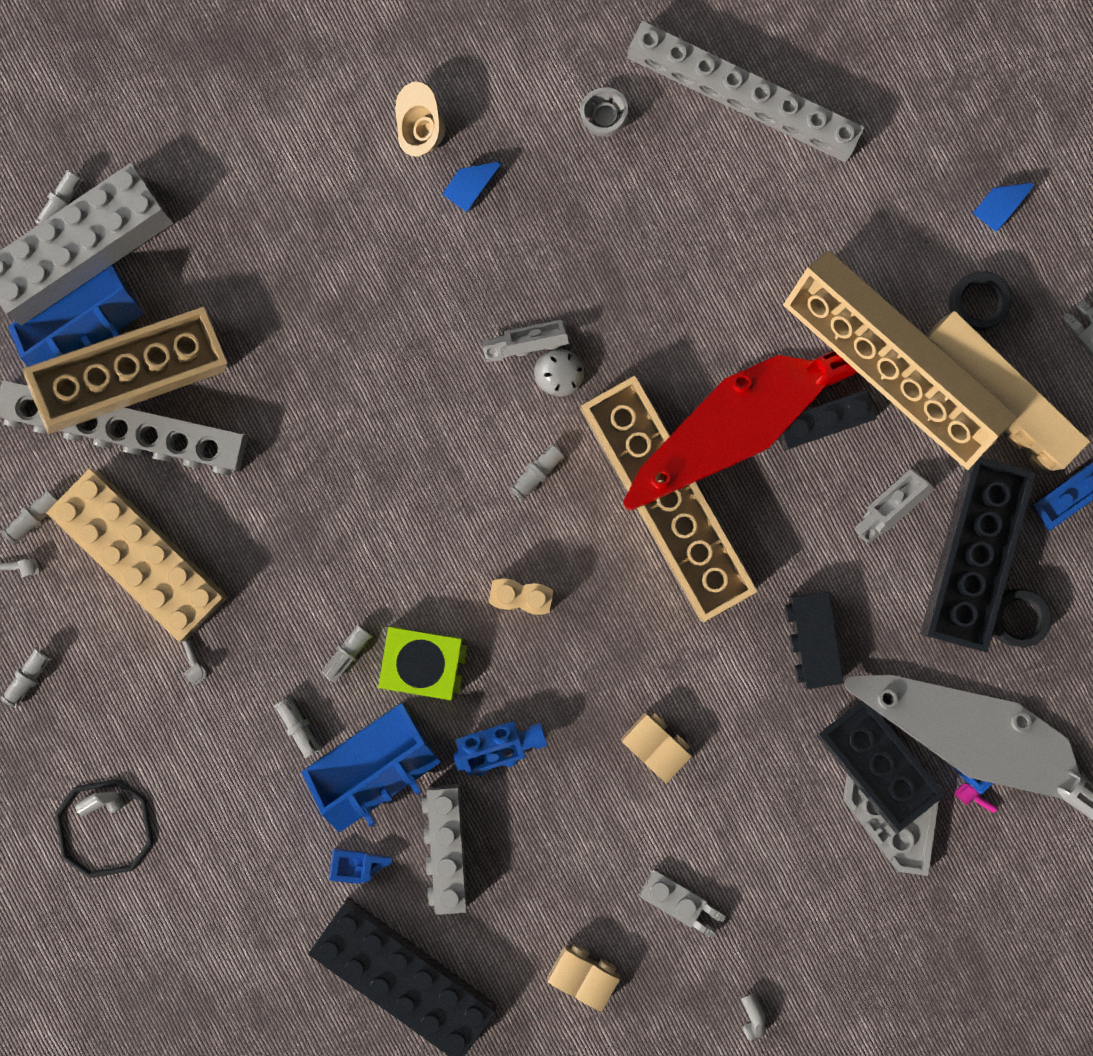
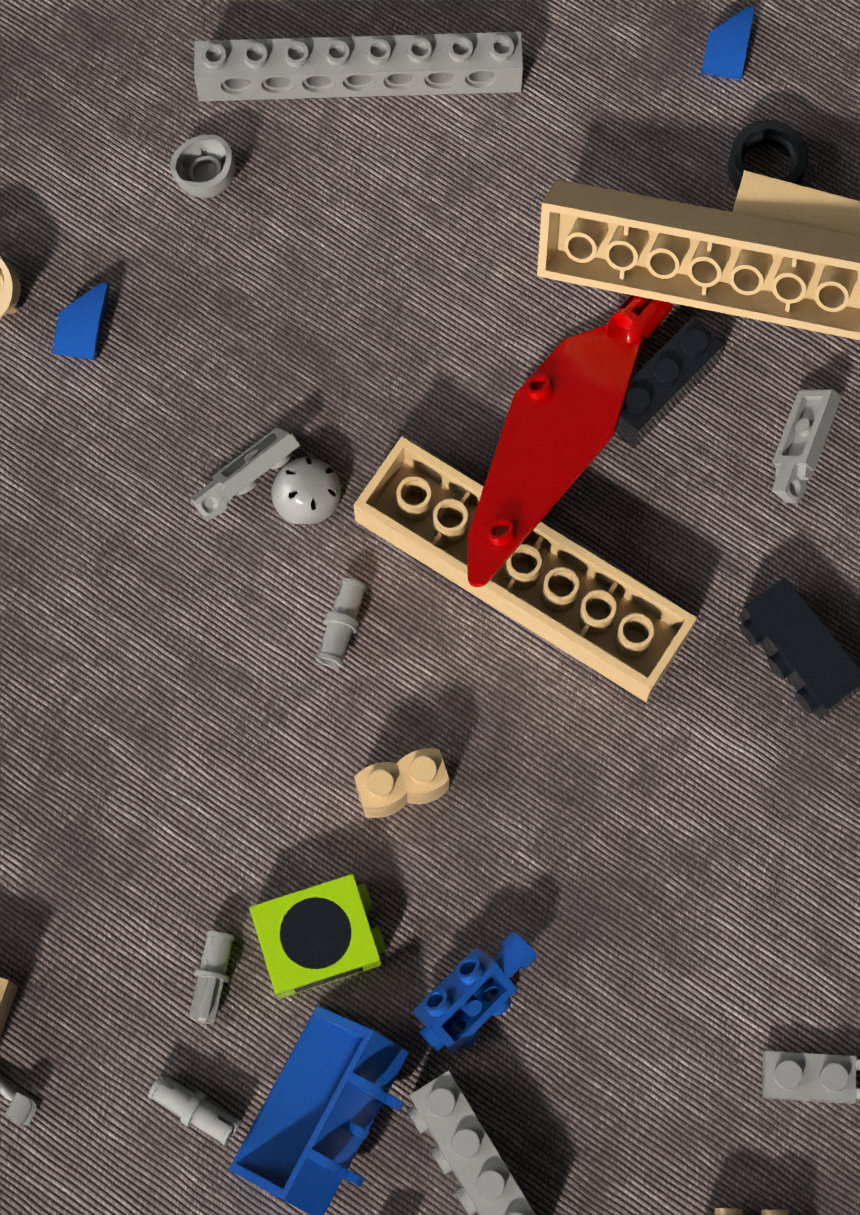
camera: 30 degrees left, 15 degrees down
(656, 747) = (679, 886): tan brick -> none

